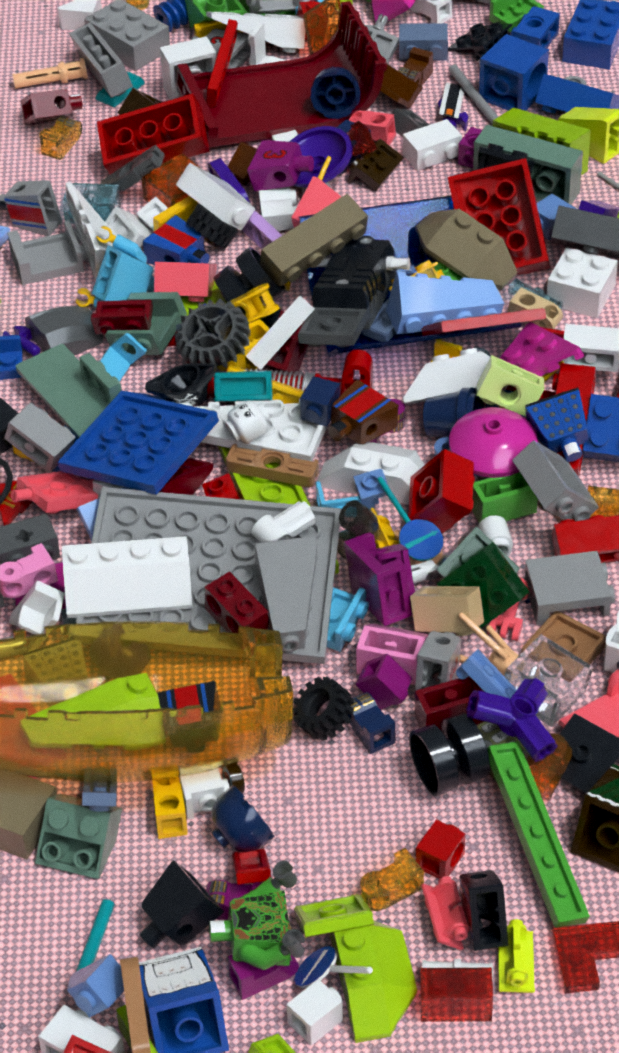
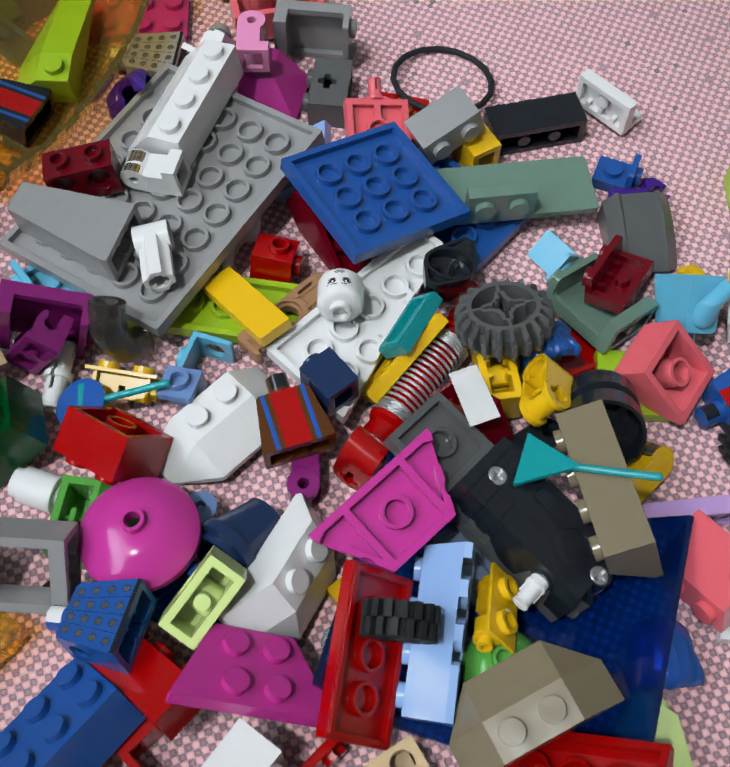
camera: 115 degrees right, 15 degrees up
(204, 559) = (157, 172): none -> white leg
(286, 472) = (247, 306): none -> yellow tile
(320, 263) = (543, 461): none -> teal piece
(396, 320) = (392, 511): none -> dark pink wing
(461, 293) = (400, 620): none -> black tyre

